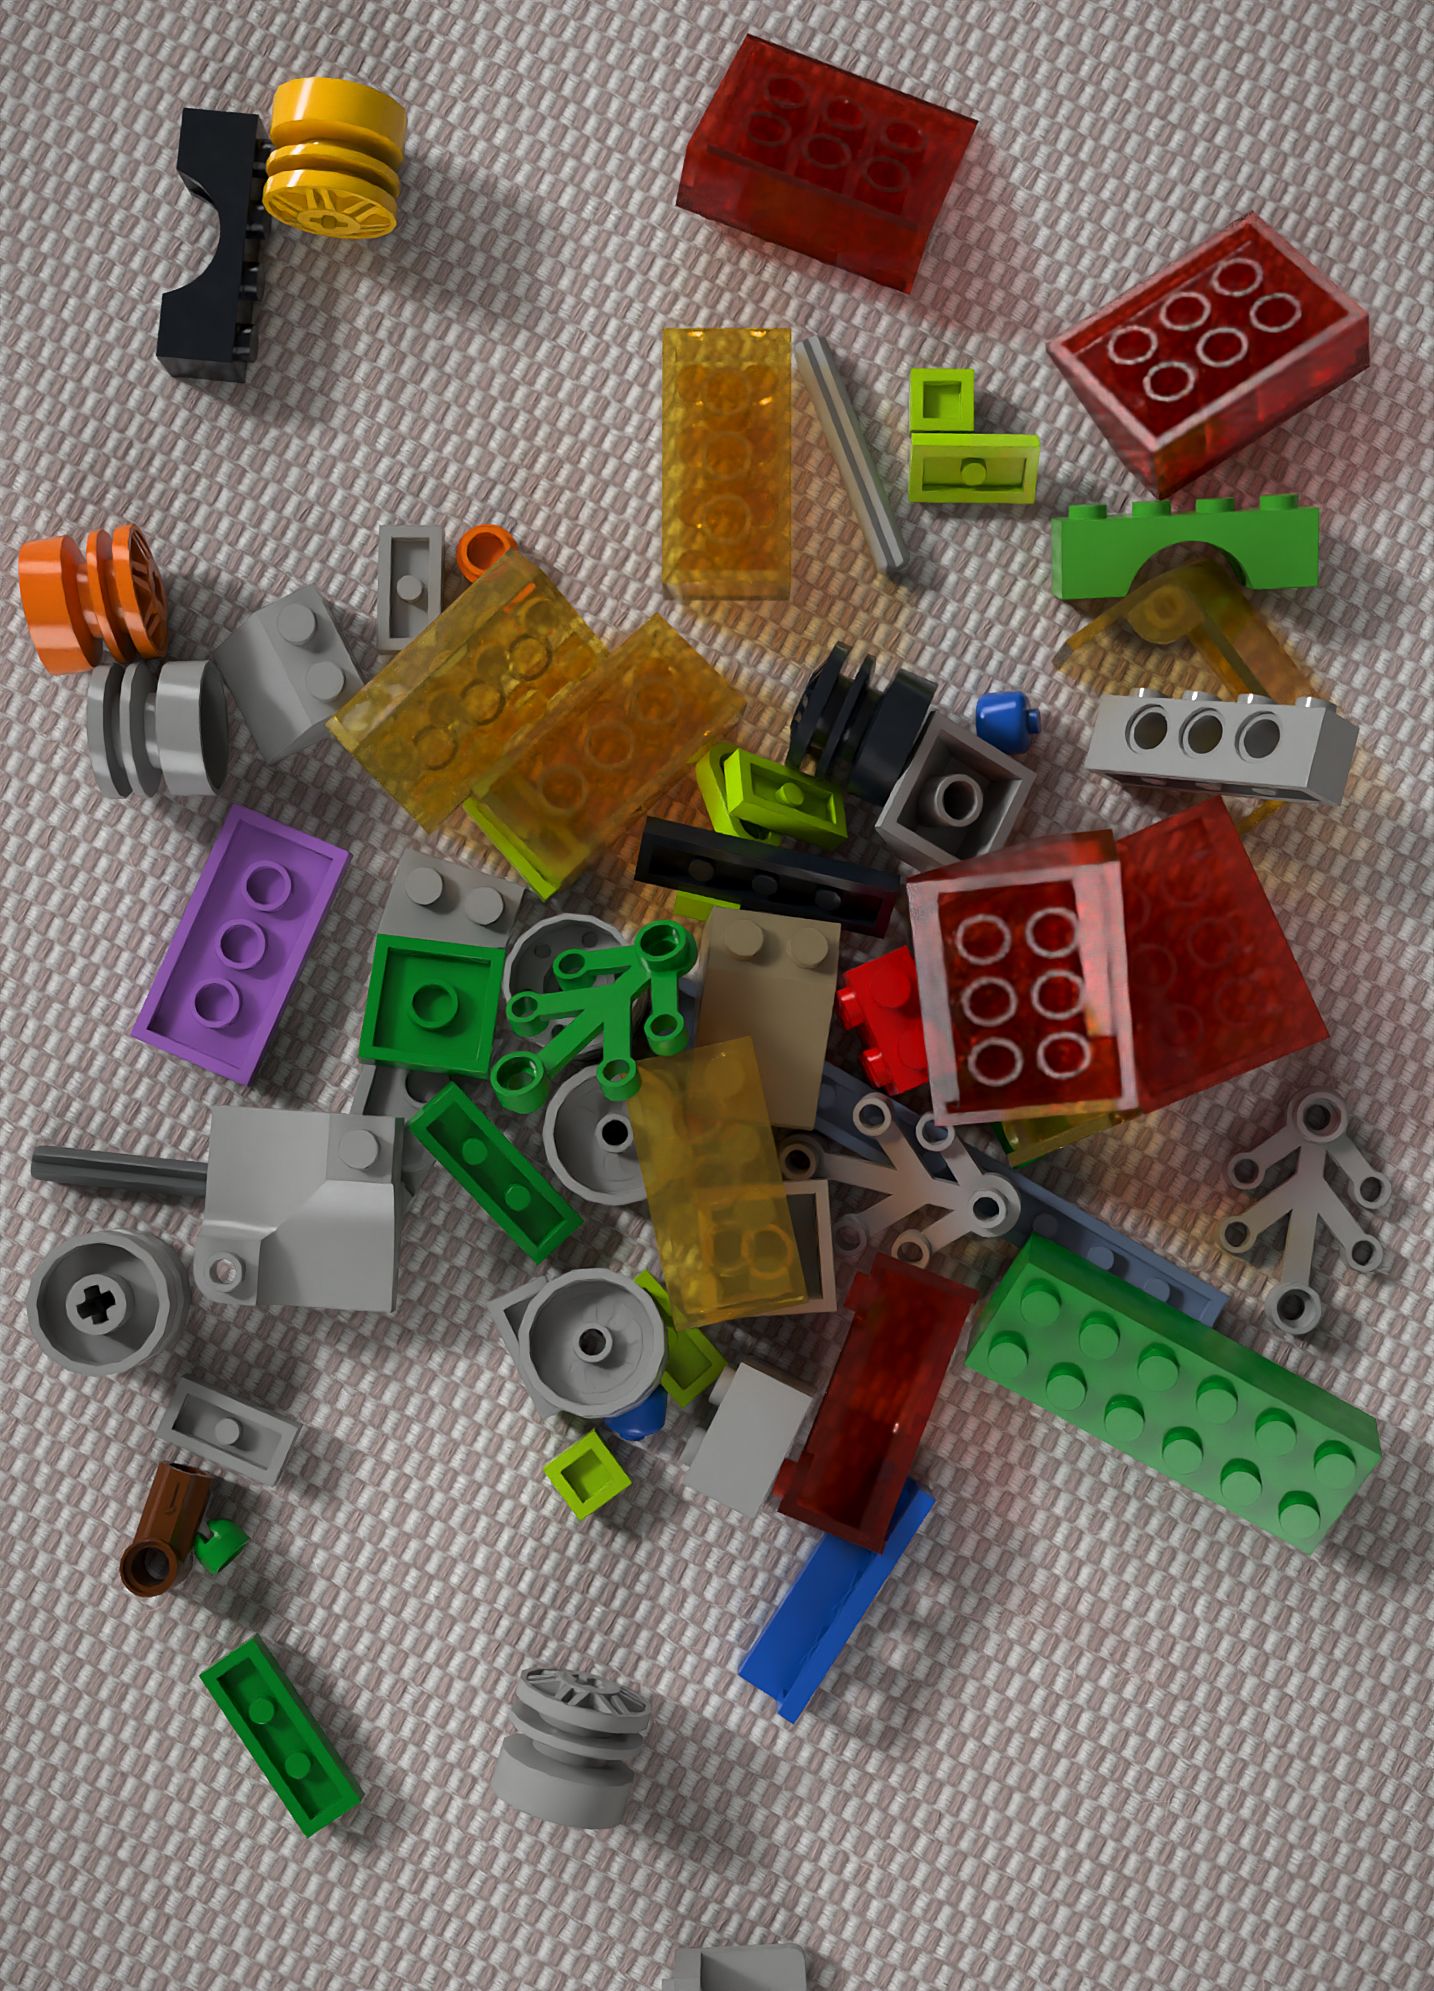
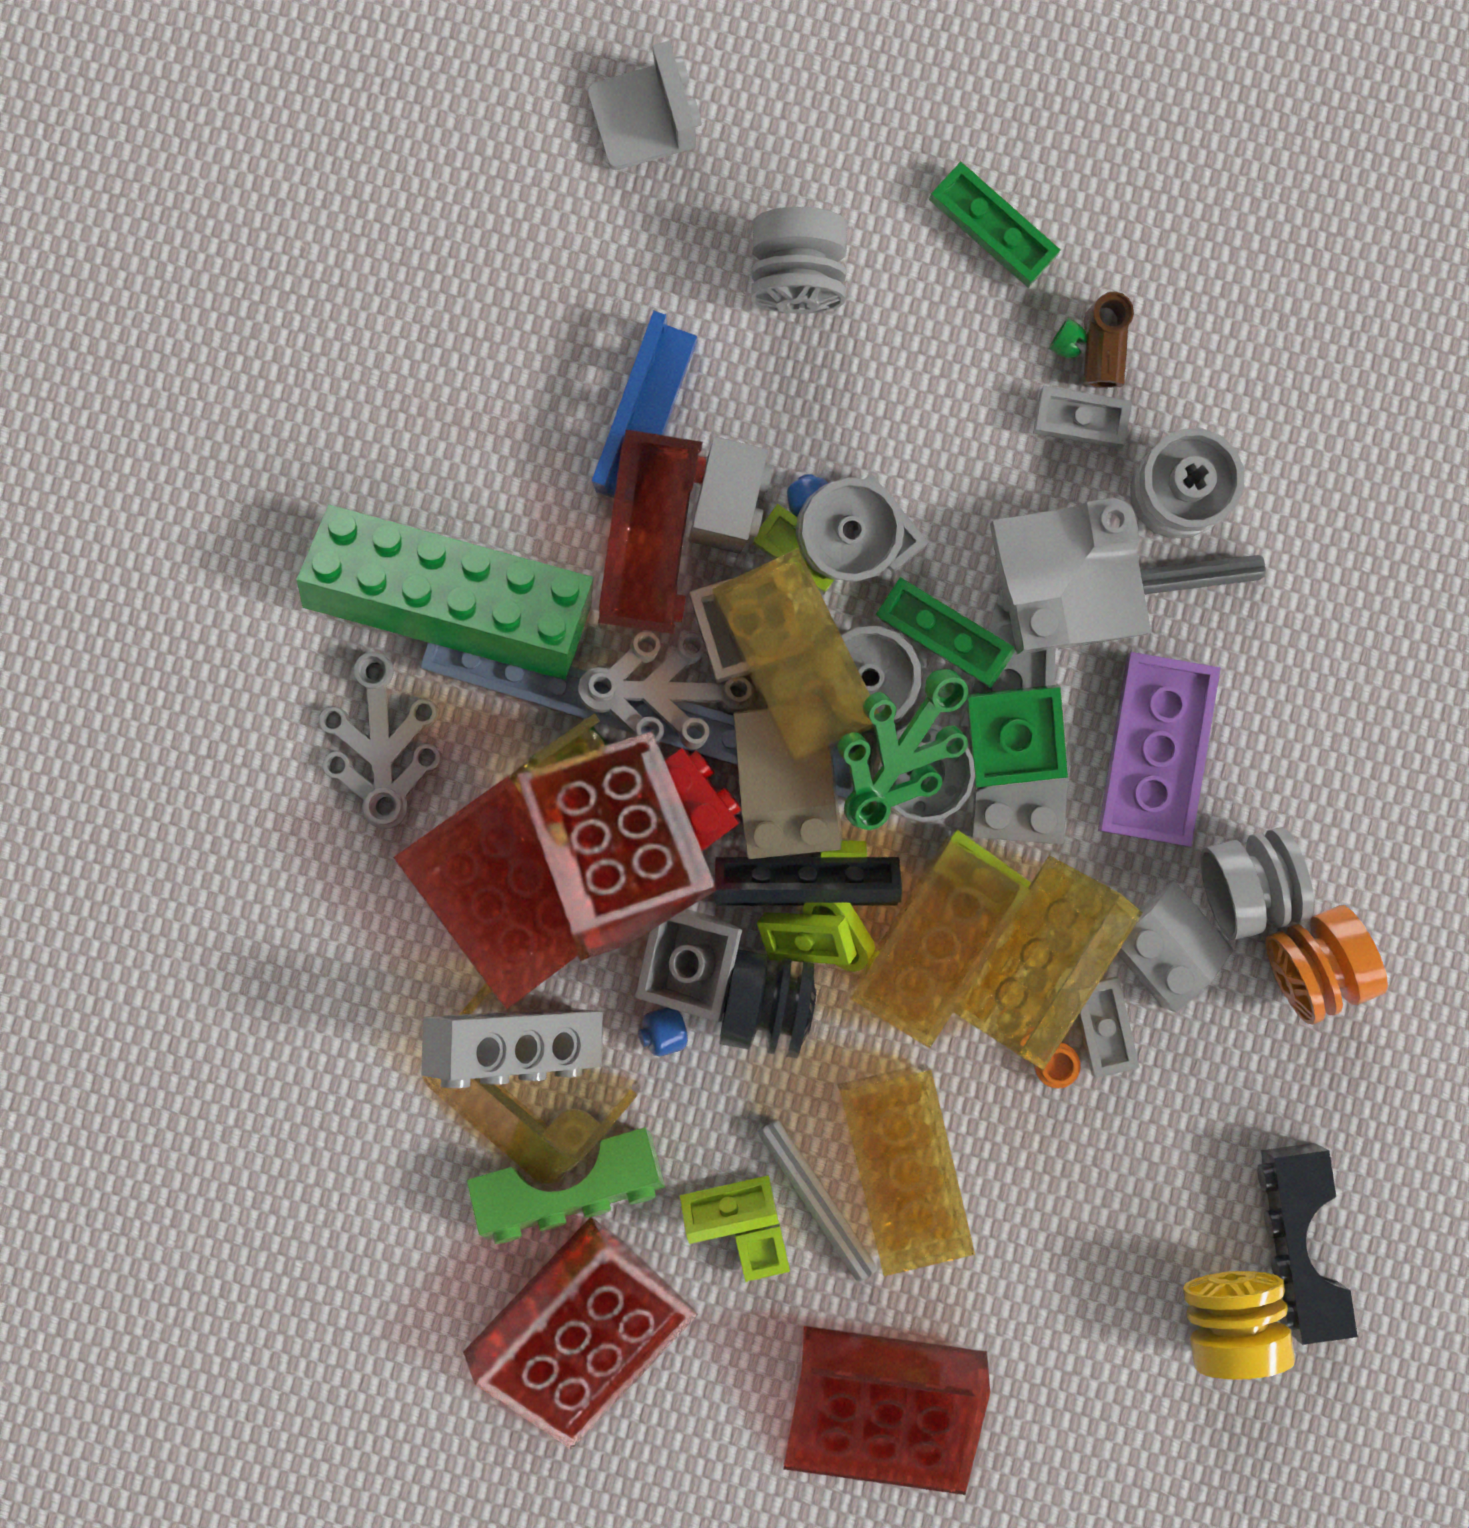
camera: 160 degrees right, 0 degrees up
(588, 1474) = (831, 445): lime plate -> none

